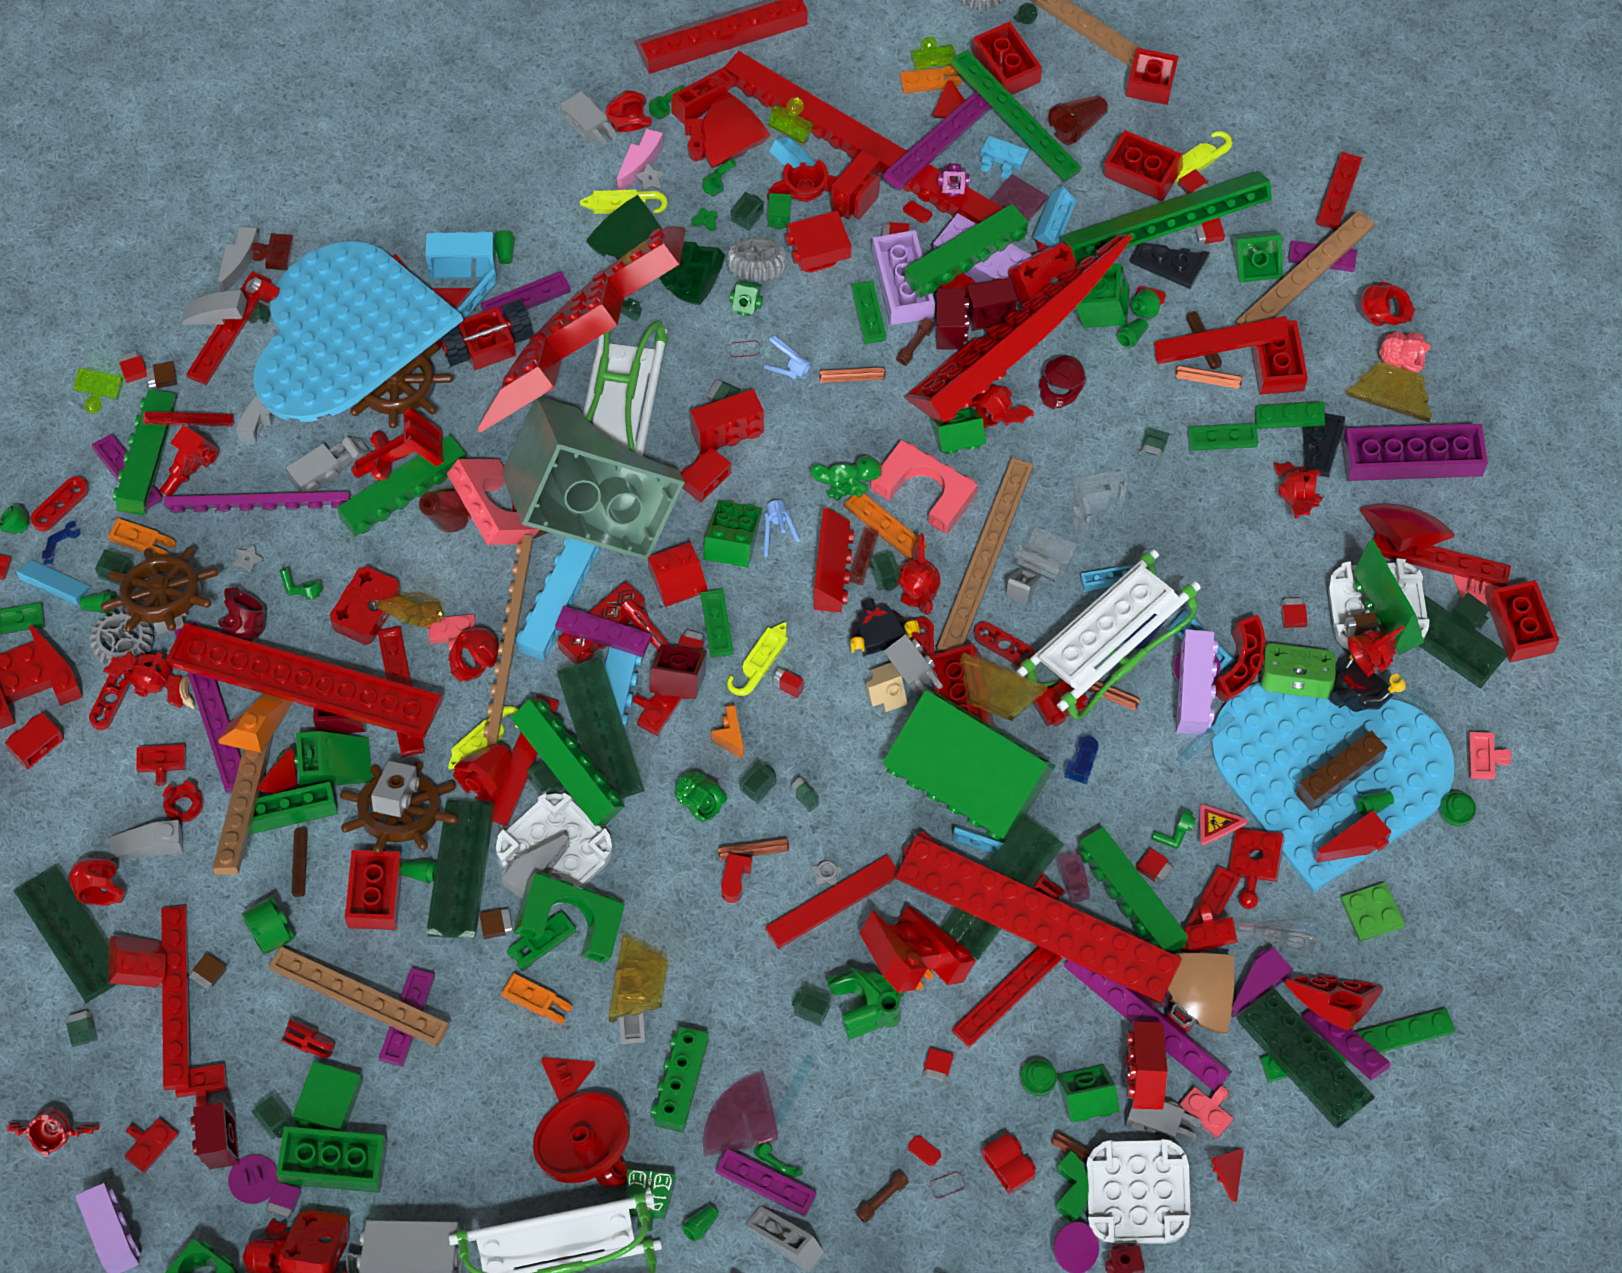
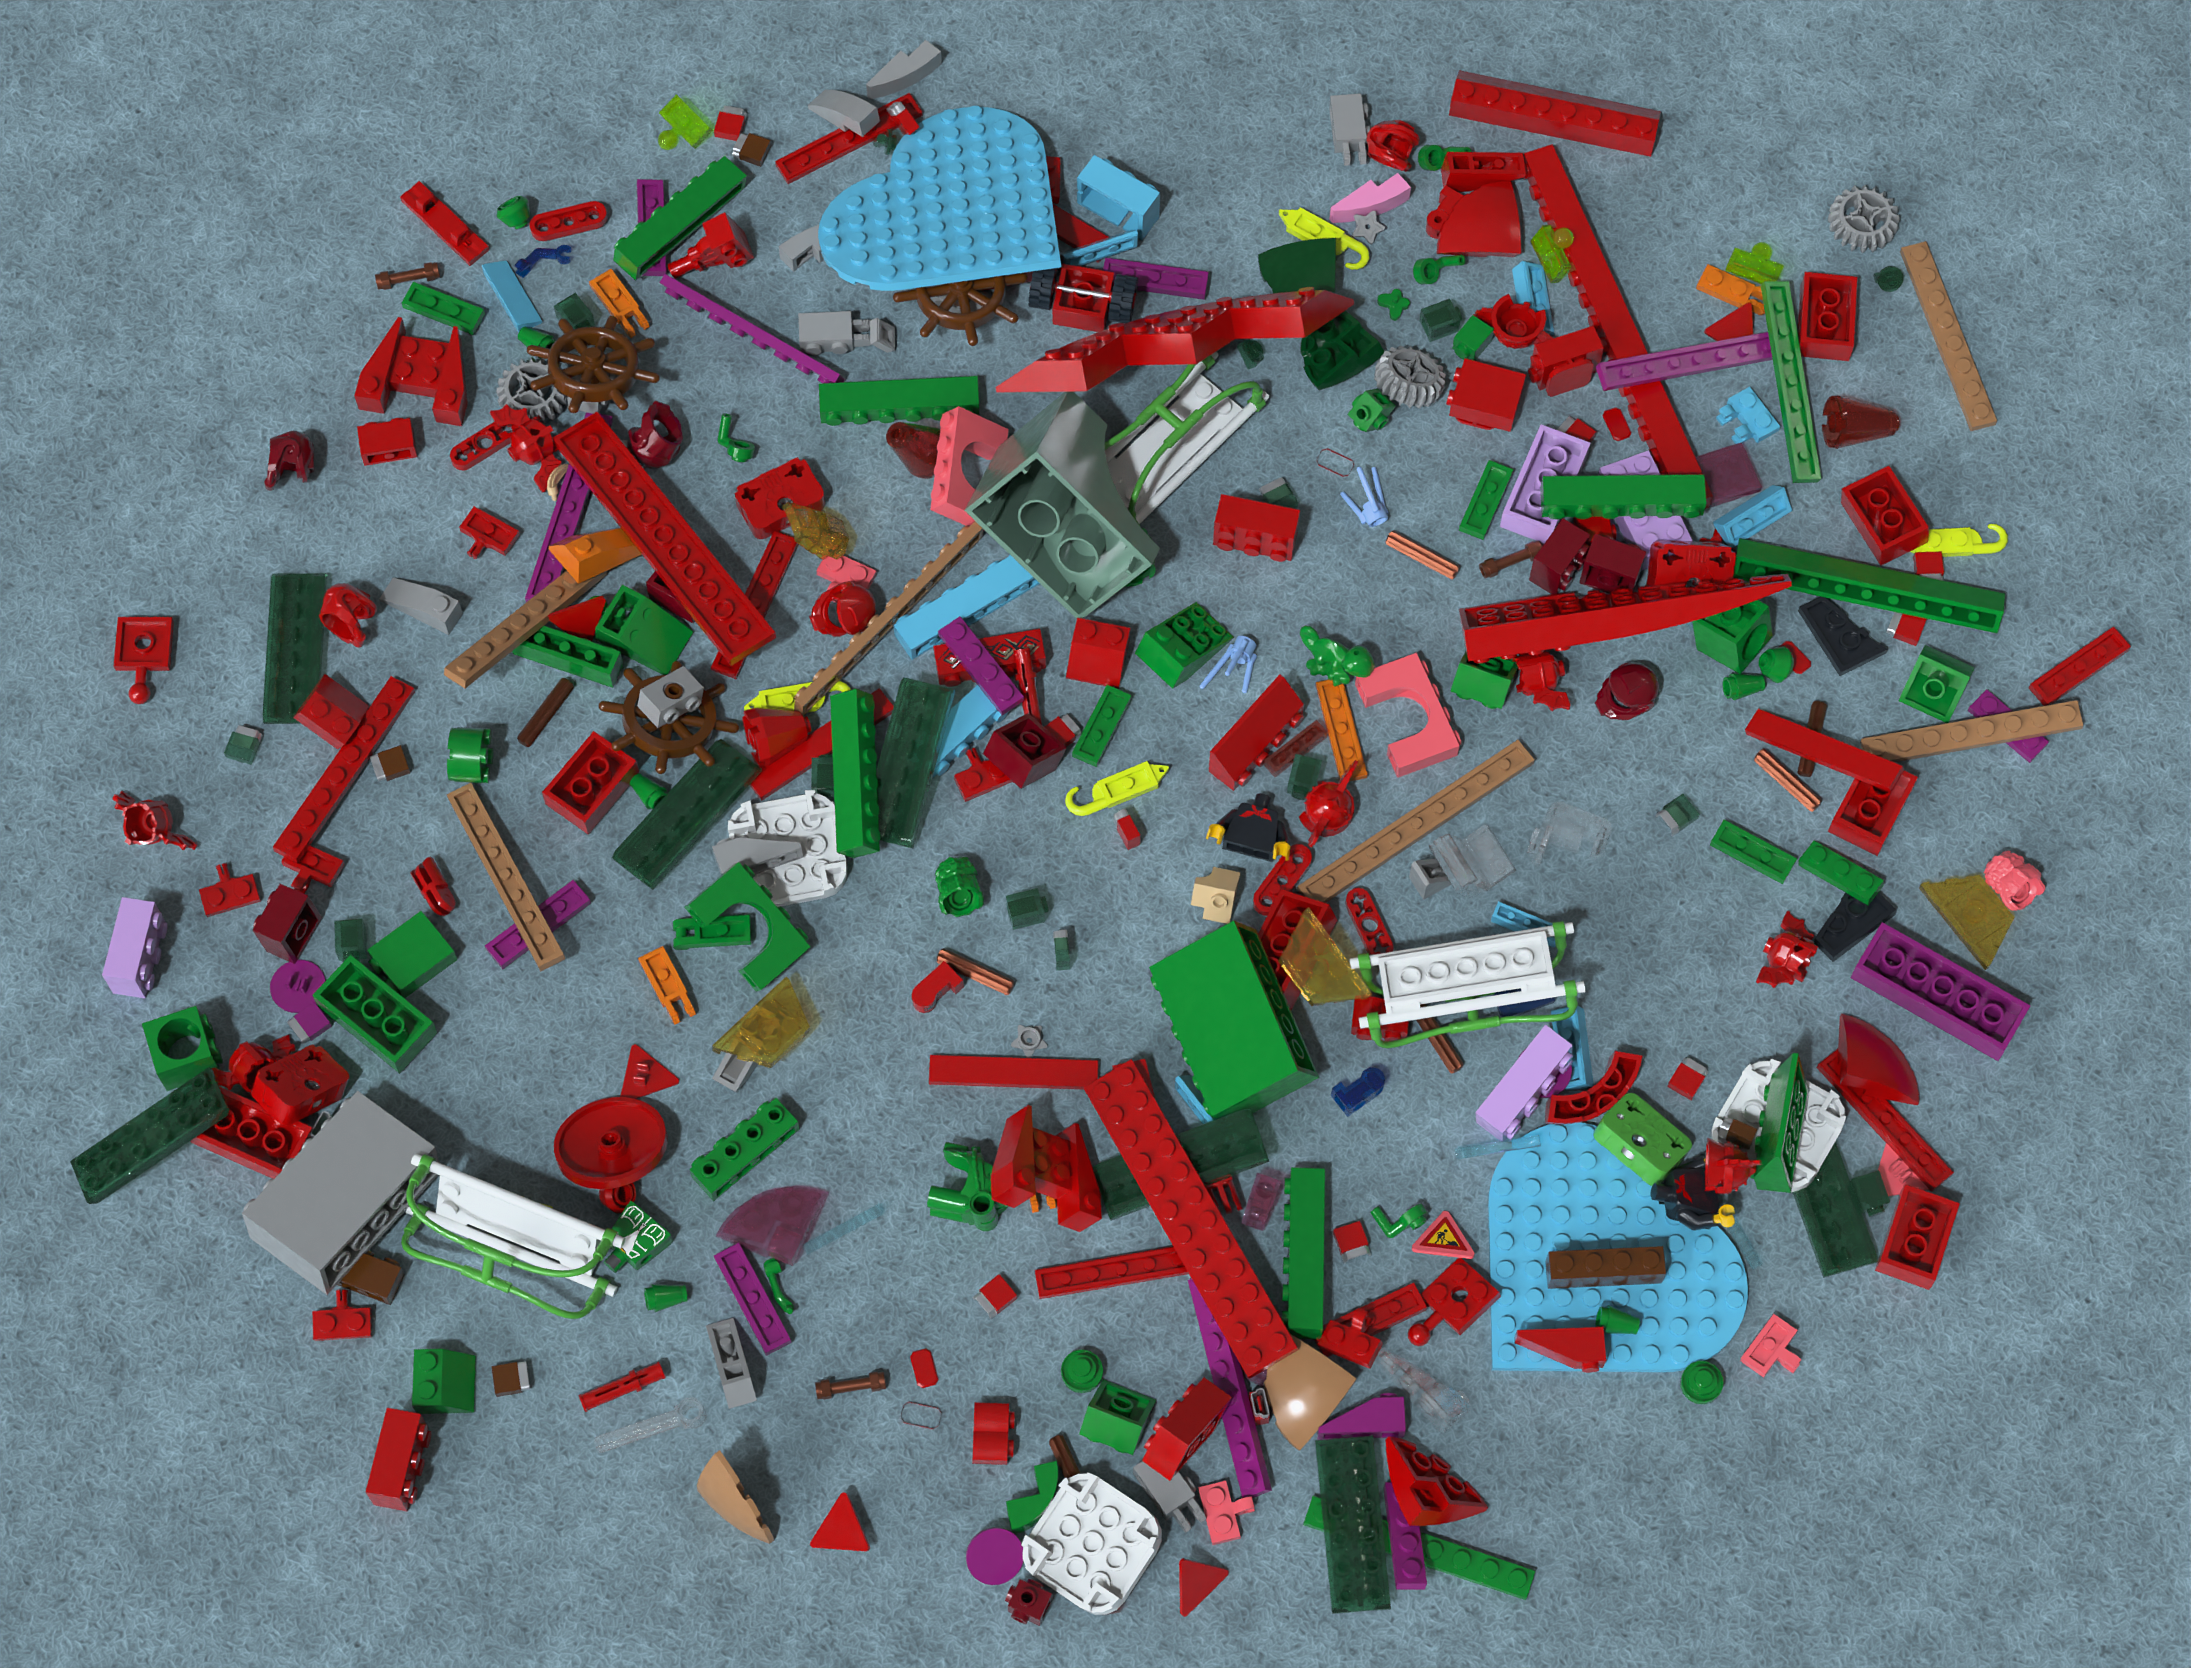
camera: 35 degrees right, 5 degrees up
(172, 795) = (474, 574): red piece -> none
(186, 417) = (740, 207): red axle -> none
(247, 564) = (703, 390): light grey plate -> none
(276, 253) = (944, 88): clear red plate -> none
(418, 437) = (939, 360): red piece -> none
(495, 923) = (681, 886): reddish brown piece -> none
(504, 246) = (1172, 212): green cone -> none
(705, 474) = (1199, 568): red brick -> none
(730, 736) = (1033, 847): orange slope -> none
(811, 1005) = (917, 1159): clear green brick -> none
(911, 664) = (1256, 888): light grey hinge -> none
(957, 187) = (1659, 413): magenta brick -> none
(1152, 76) = (1968, 424): red slope -> none
(1372, 912) = (1535, 1428): bright green plate -> none
(1376, 304) = (2023, 811): red helmet -> none

